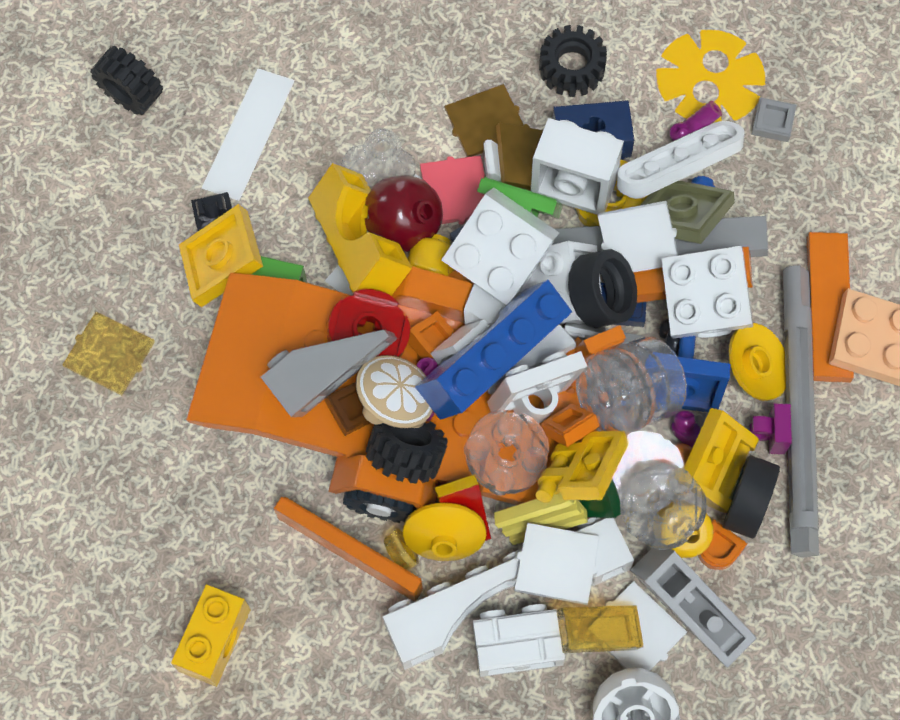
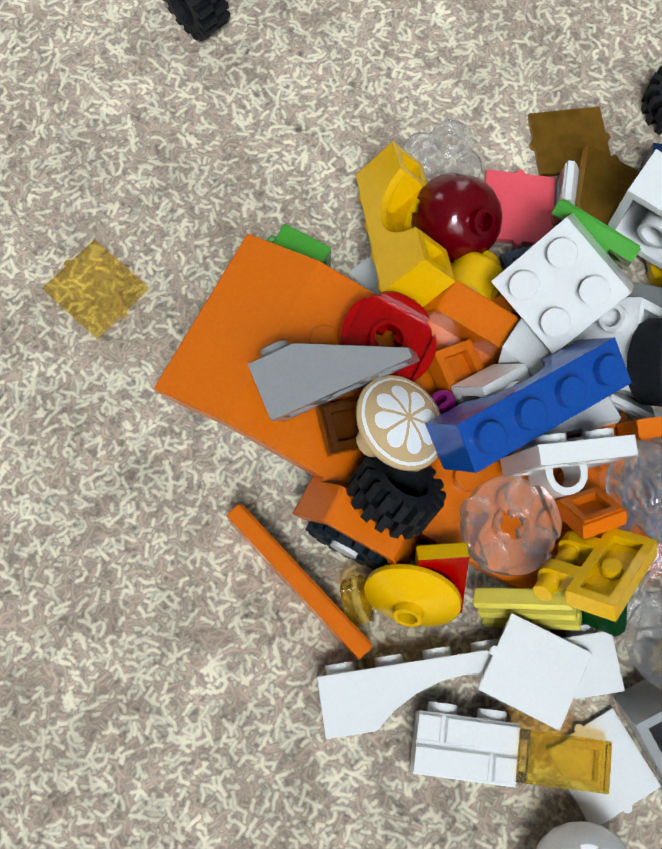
camera: 10 degrees right, 5 degrees up
(210, 208) = (248, 168): black tile -> none
(211, 635) = (116, 642): yellow brick -> none
(216, 251) = (240, 206): yellow plate -> none
(248, 134) = (308, 91): white sticker -> none

